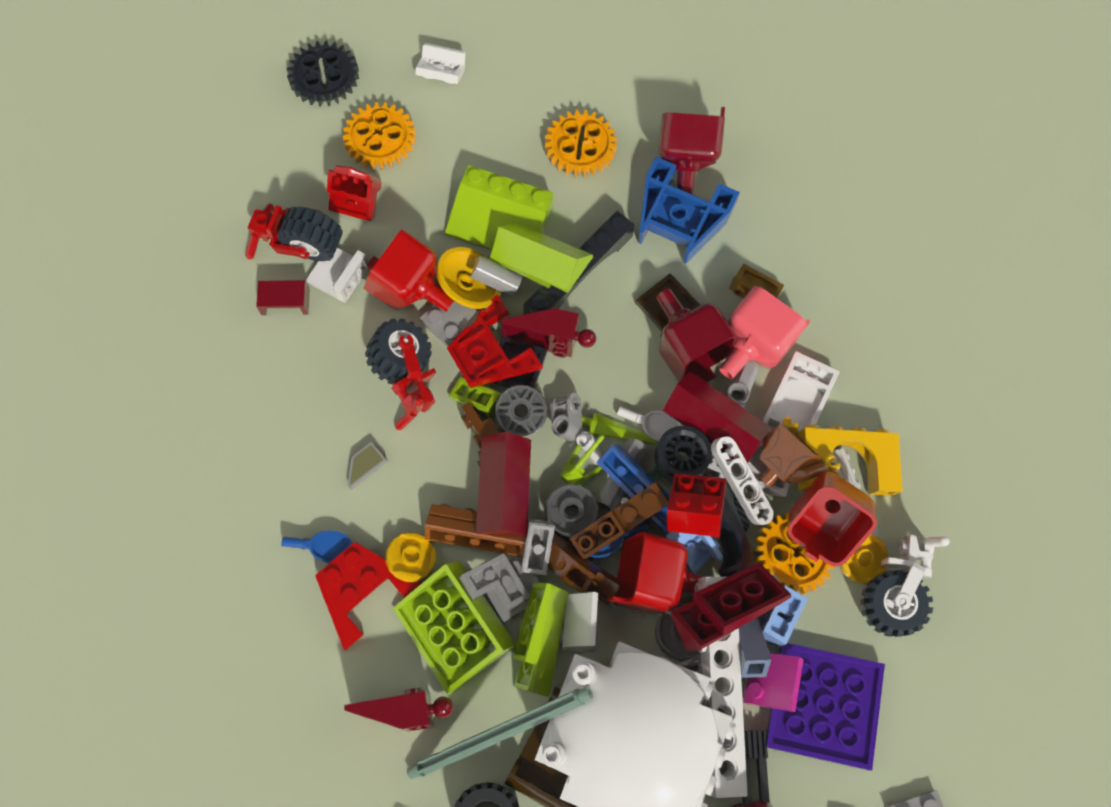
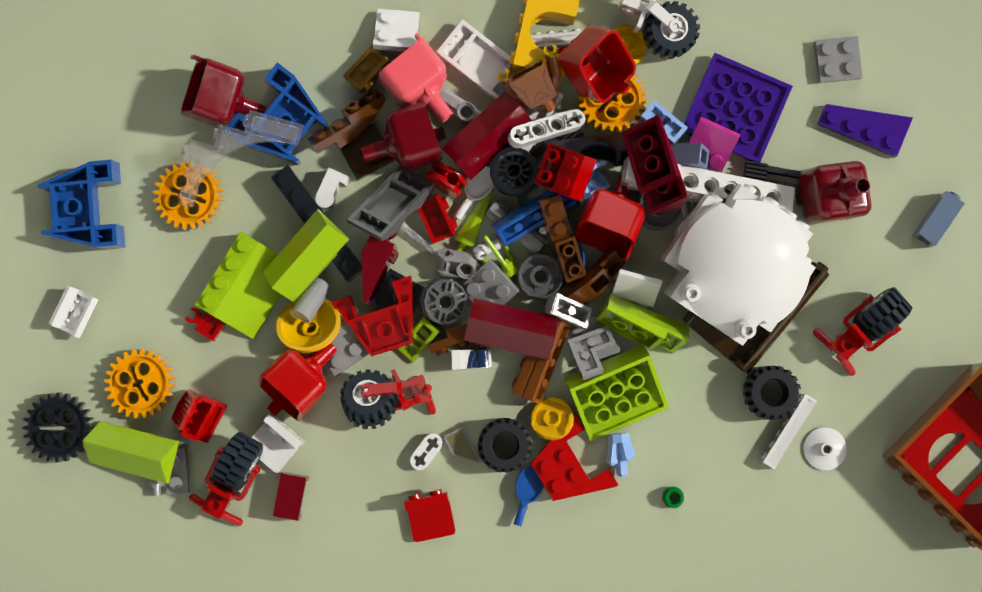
camera: 75 degrees left, 15 degrees up
(281, 444) = (430, 515): none -> red bracket
(295, 186) = (179, 477): none -> light grey plate
(308, 139) = (131, 451): none -> lime slope
(332, 724) = (679, 500): none -> green plate
(355, 423) = (430, 454): none -> white beam
(358, 494) = (504, 464): none -> black tyre
(384, 643) = (619, 452): none -> light blue rock
(404, 712) = (680, 445): dark red slope -> none
(449, 185) = (208, 325): none -> red plate
(463, 453) = (471, 359): none -> leg
(500, 732) = (715, 369): sand green piece -> none
(547, 45) = (77, 205): none -> blue wedge
(550, 458) = (490, 285): none -> light grey plate
(578, 384) = (418, 239): none -> white piece
(611, 388) = (437, 220): none -> red bracket
(616, 333) = (391, 204): none -> dark grey slope
(619, 274) = (329, 187): none -> white leg
(644, 157) = (204, 156): none -> clear arch
(657, 387) = (446, 179): none -> red head
(701, 284) = (356, 118): none -> reddish brown slope
(811, 304) = (395, 29): none -> white plate

